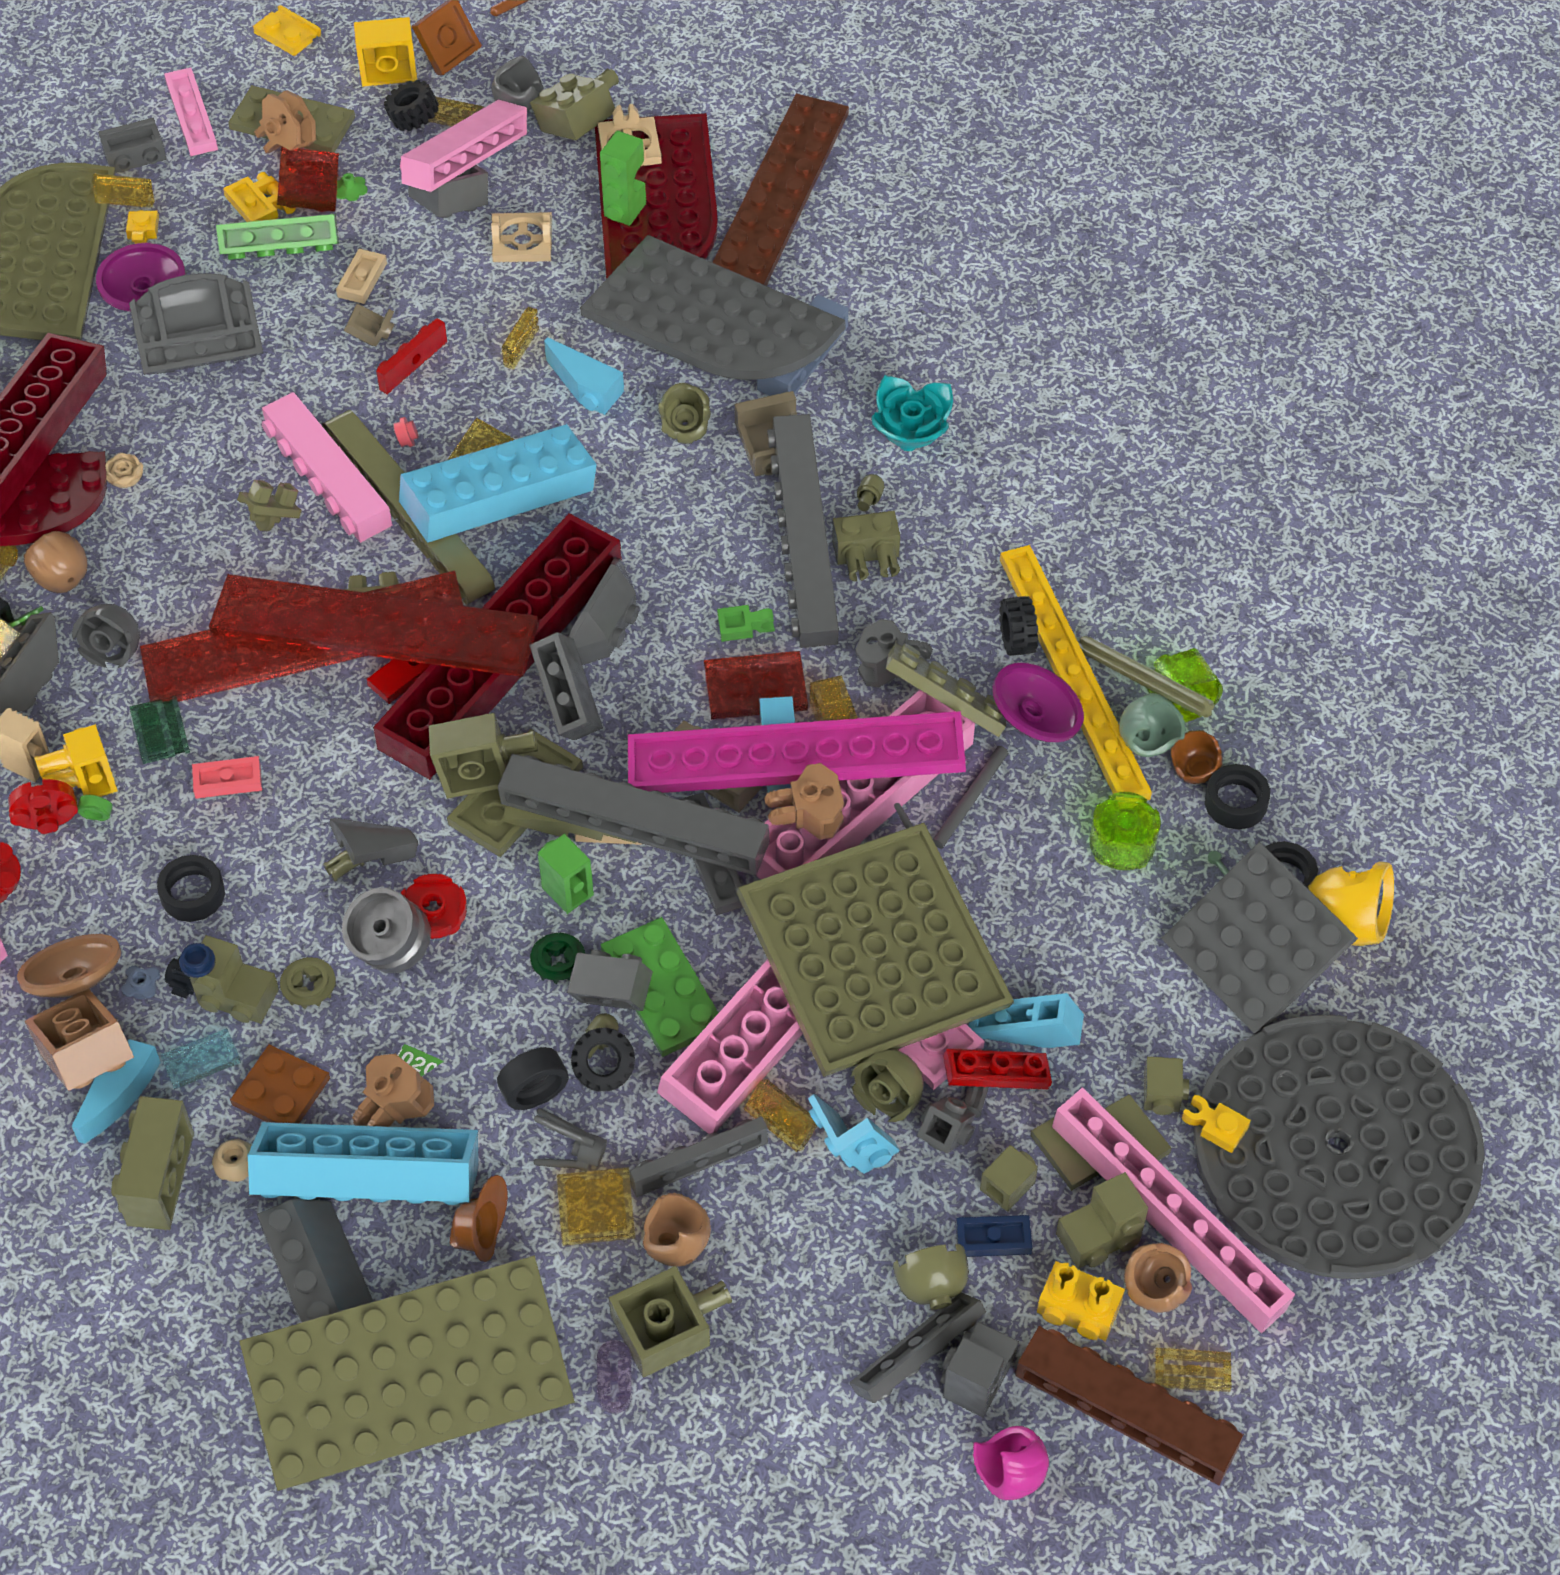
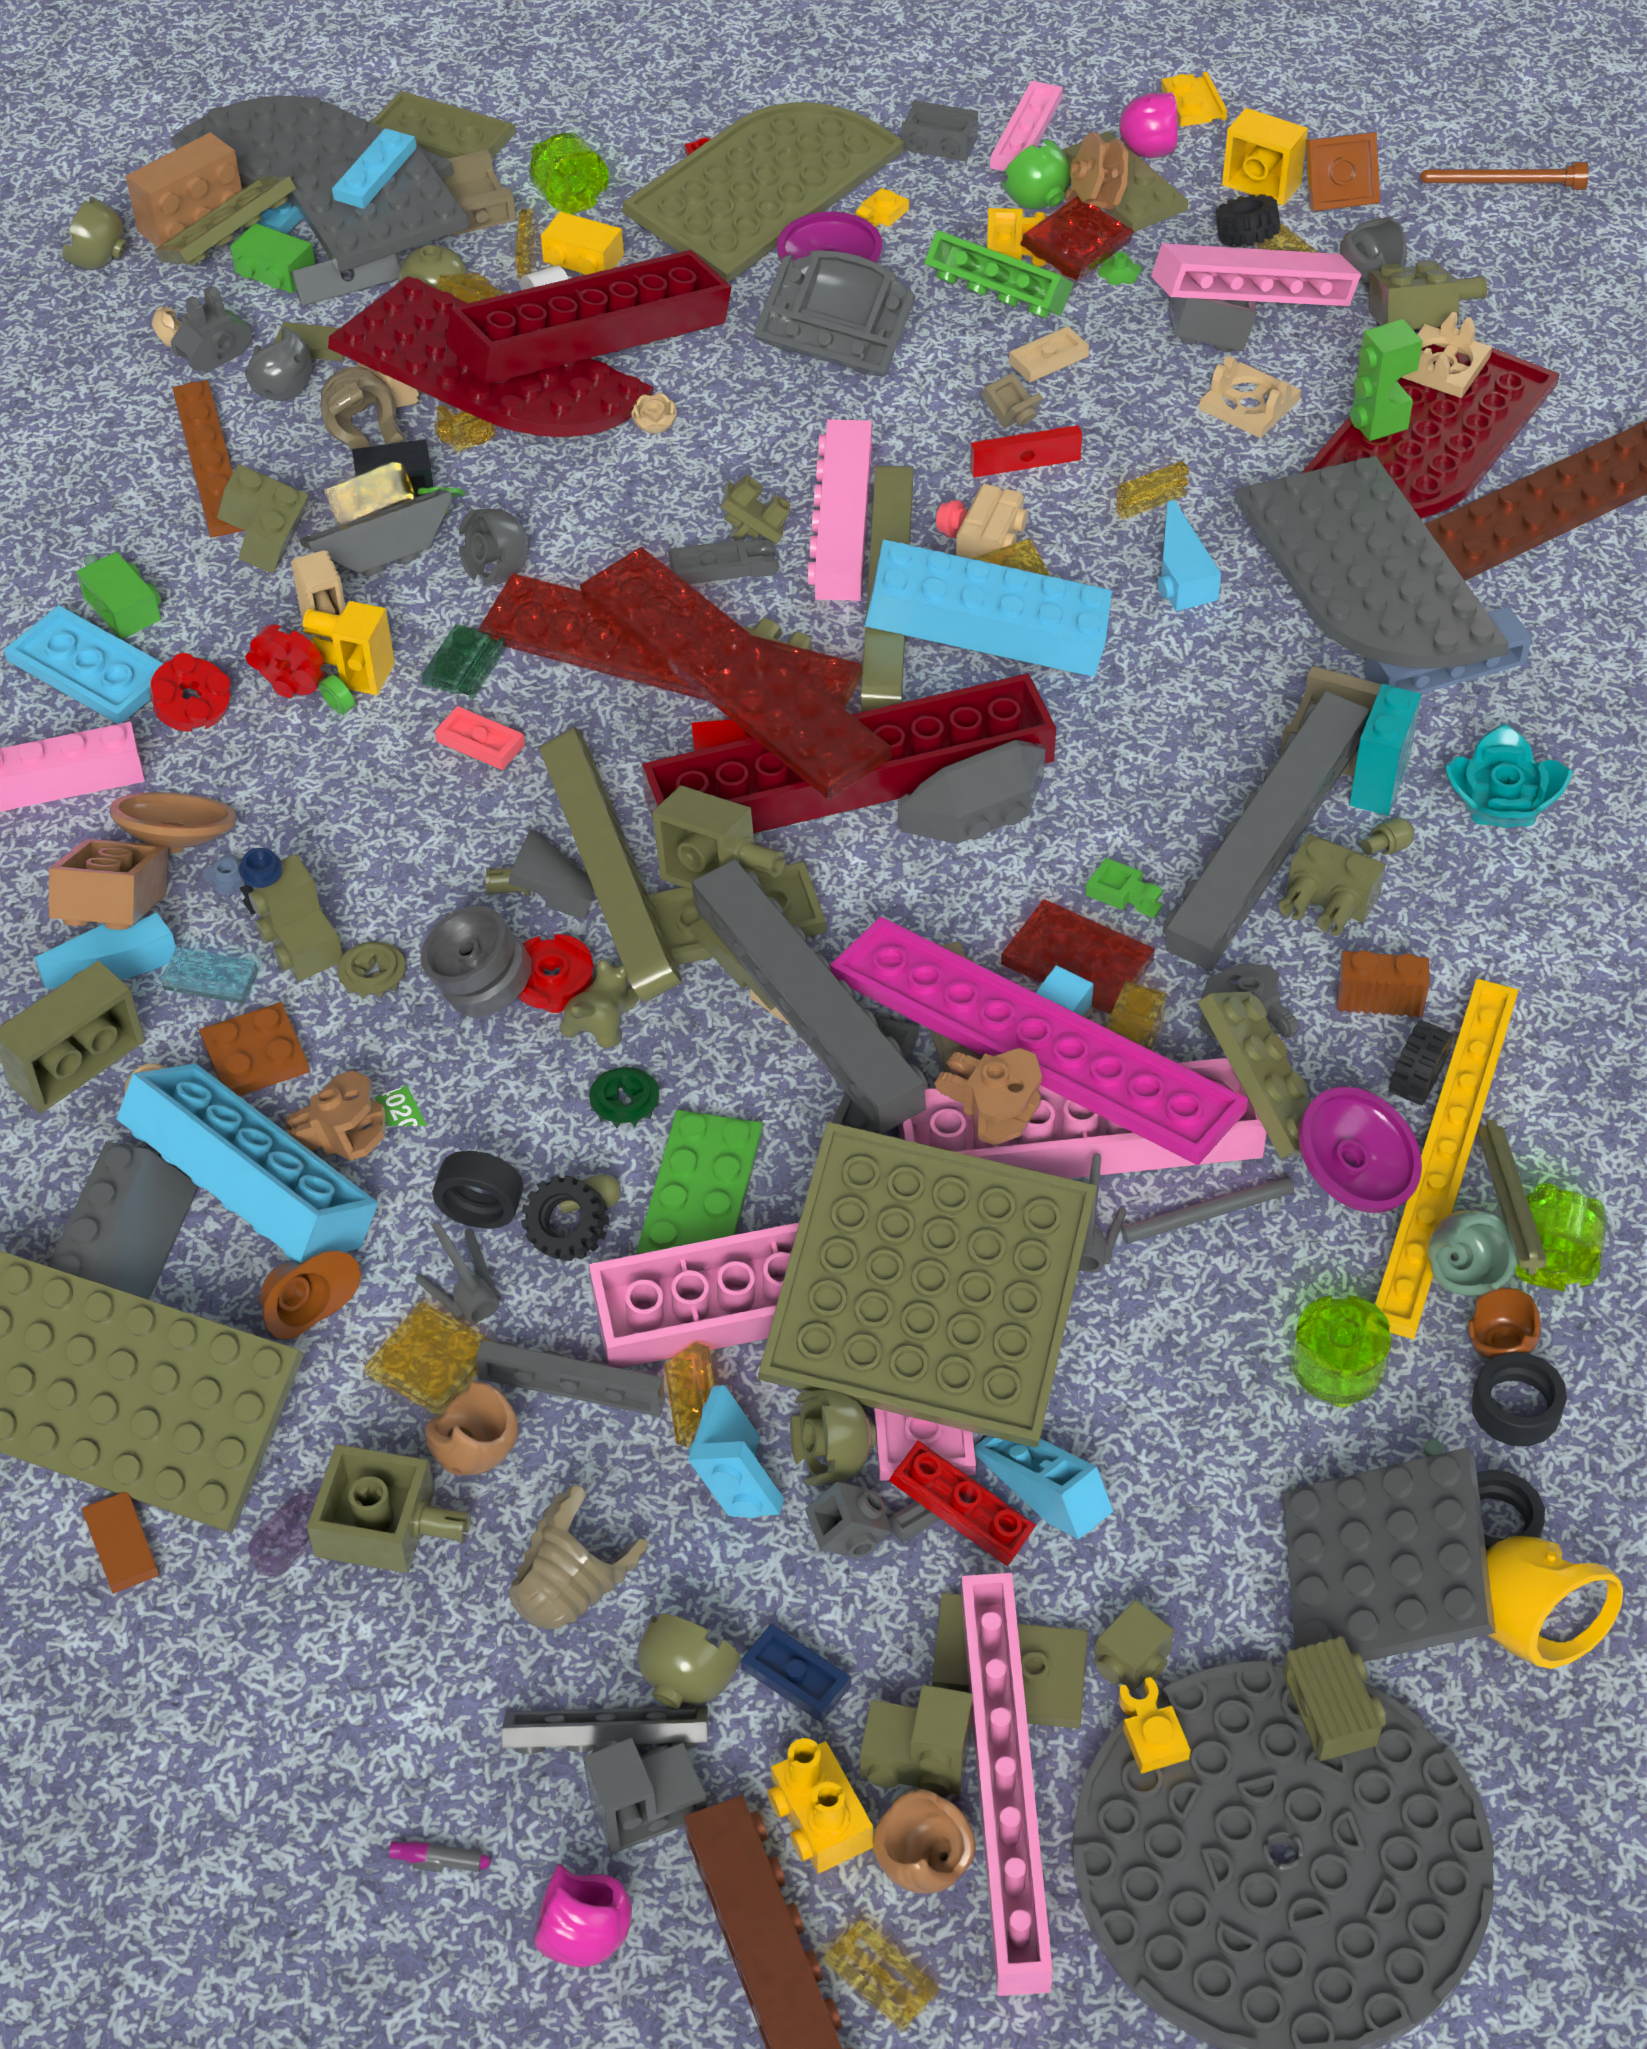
camera: 40 degrees right, 5 degrees down
(56, 562) = (511, 452): medium nougat piece -> none
(122, 190) = (891, 165): clear yellow tile -> none
(195, 909) = (355, 839): black tyre -> none
(241, 147) = (1038, 176): none -> bright green cylinder
(276, 551) = (724, 560): none -> dark grey hinge
(285, 66) = (1150, 125): none -> dark pink piece
(407, 808) = (610, 866): none -> olive beam
(437, 422) = (991, 522): none -> tan brick
(487, 908) = (600, 1006): none -> olive animal
(511, 1458) = (120, 1542): none -> dark orange tile
(565, 873) = (697, 1015): bright green brick -> none
(566, 686) = (868, 837): dark grey brick -> none
(610, 980) = (643, 1146): dark grey brick -> none
(684, 404) = (1255, 638): olive hair -> none
(822, 1283) = (560, 1574): none -> dark tan hair
(832, 434) = (1385, 749): none -> teal brick
(889, 1495) = (436, 1857): none -> dark grey piece
(950, 589) = (1383, 983): none -> dark orange brick
(1009, 1177) = (866, 1621): olive brick -> none
(1298, 1037) = (1333, 1698): none -> olive brick

